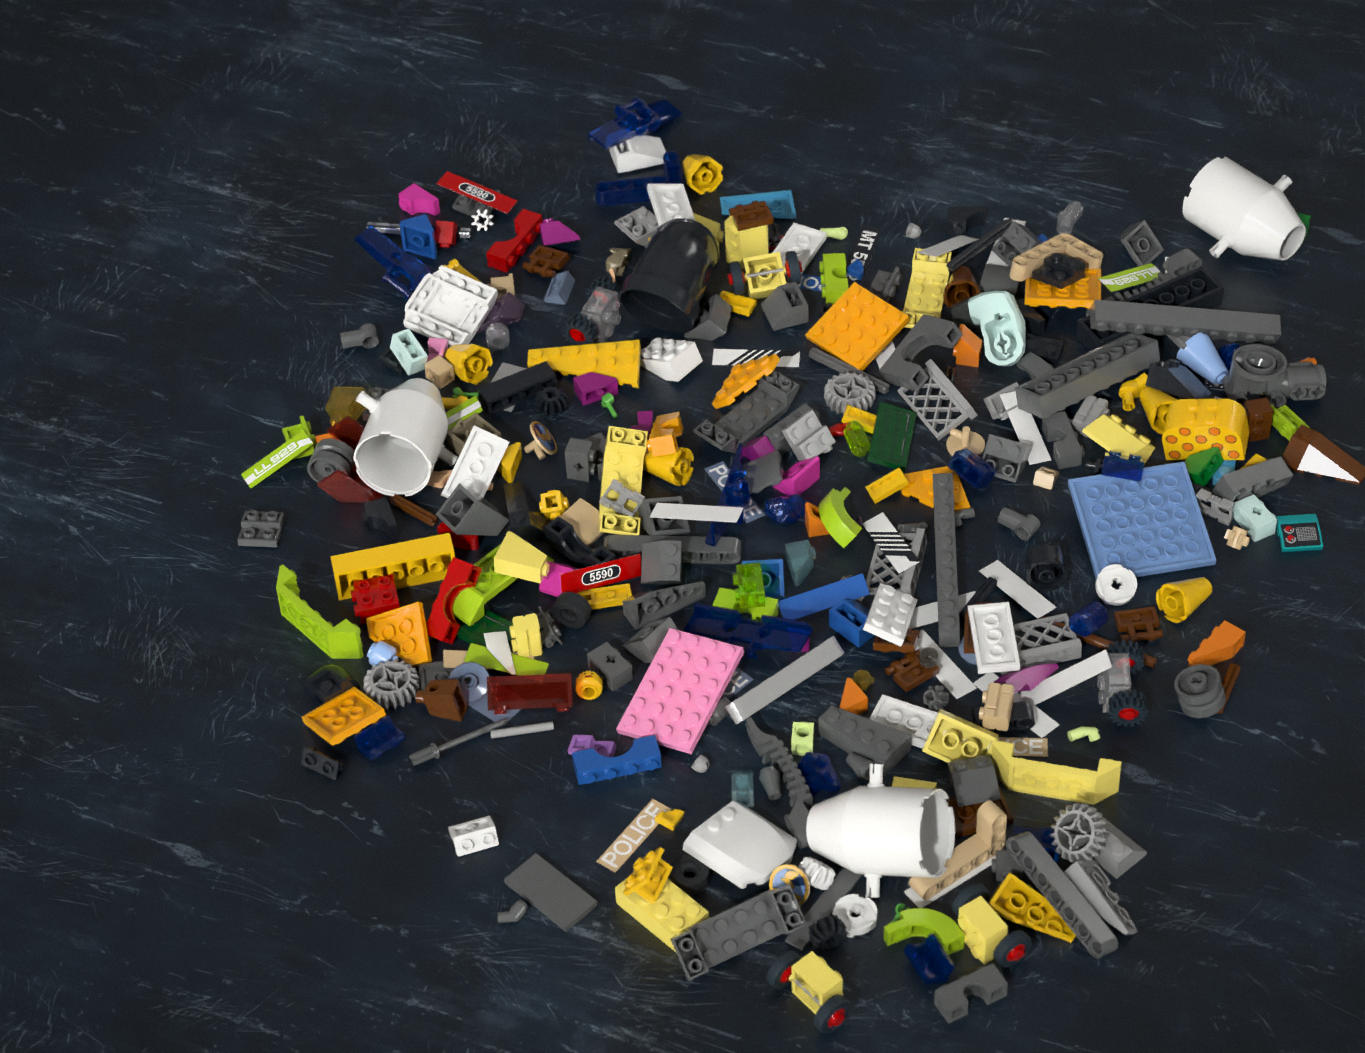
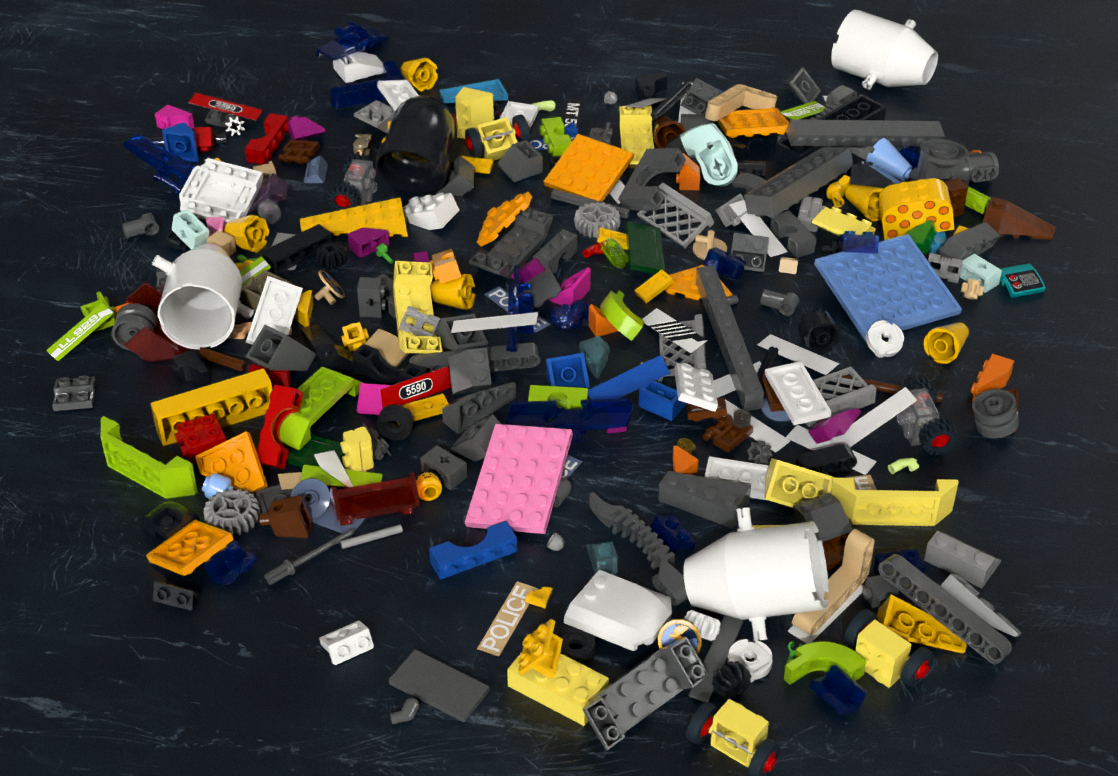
camera: 15 degrees left, 5 degrees down
(343, 403) = (136, 274): clear yellow torso -> none
(520, 559) = (338, 382): light yellow slope -> none
(584, 742) = (435, 538): medium lavender slope -> none
(735, 356) = (485, 205): white sticker -> none
(750, 585) = (560, 378): clear neon green brick -> none
(751, 215) = (478, 88): reddish brown plate -> none
(771, 782) = (628, 548): dark grey cone -> none
(784, 680) = (614, 456): light grey beam -> none
(802, 738) = (647, 504): yellowish green brick -> none
(808, 436) = (573, 255): light grey plate -> none
(859, 765) = (711, 522): dark grey cone -> none
(912, 527) = (686, 316): dark grey arm -> none
(984, 982) = (899, 704): dark grey arch -> none
(997, 707) = (823, 450): tan brick -> none
(1060, 270) = (746, 109): black plate -> none
(1068, 217) = (736, 74): clear piece -> none
(1084, 814) = (960, 550): light grey gear -> none
(1088, 619) = (873, 368): clear blue piece -> none
(1138, 619) = (914, 364): reddish brown plate -> none

